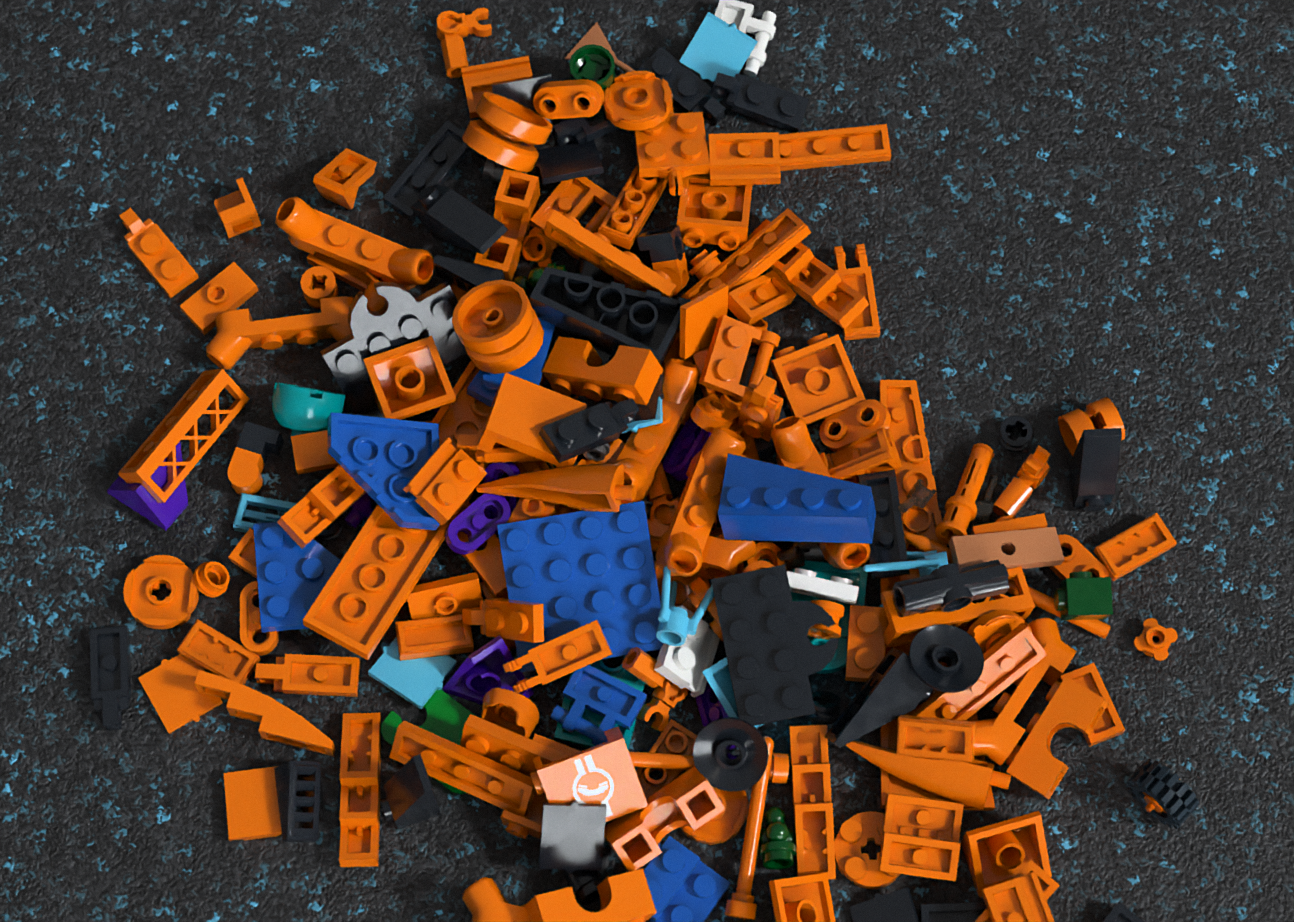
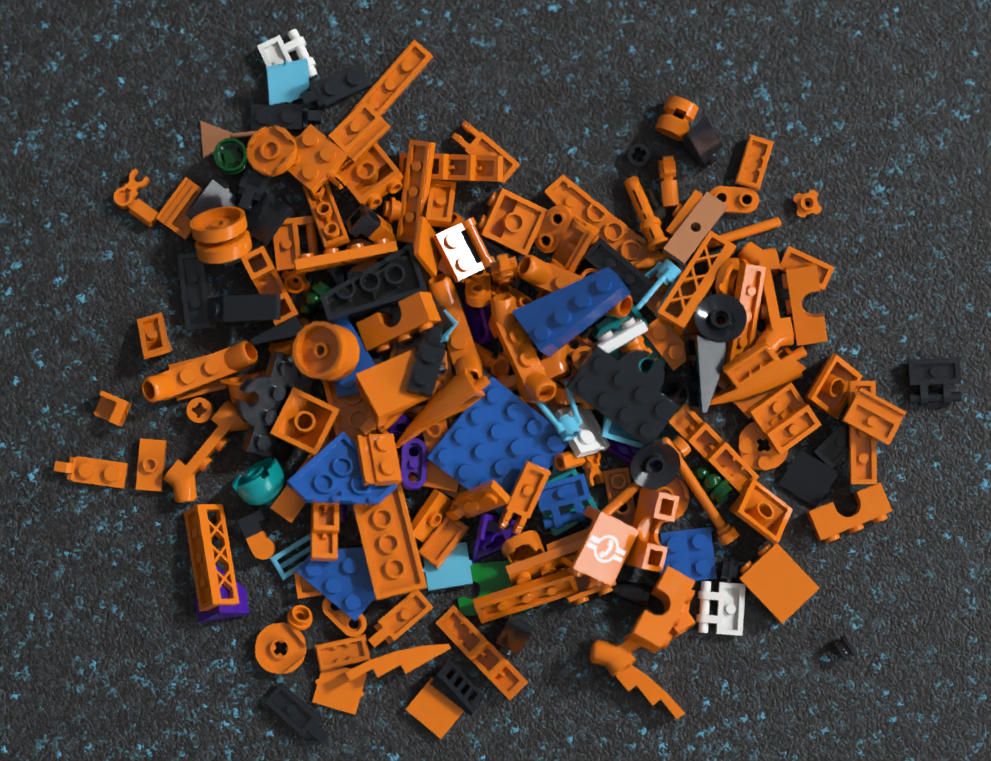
camera: 45 degrees left, 15 degrees up
(566, 98) = (234, 185): orange plate -> none
(572, 836) = (616, 581): piece -> none
(918, 496) = (623, 239): clear smoke hand -> none
(950, 587) = (690, 278): black piece -> none
(1084, 597) = (755, 217): dark green brick -> none
(1162, 793) = (883, 285): black wheel -> none

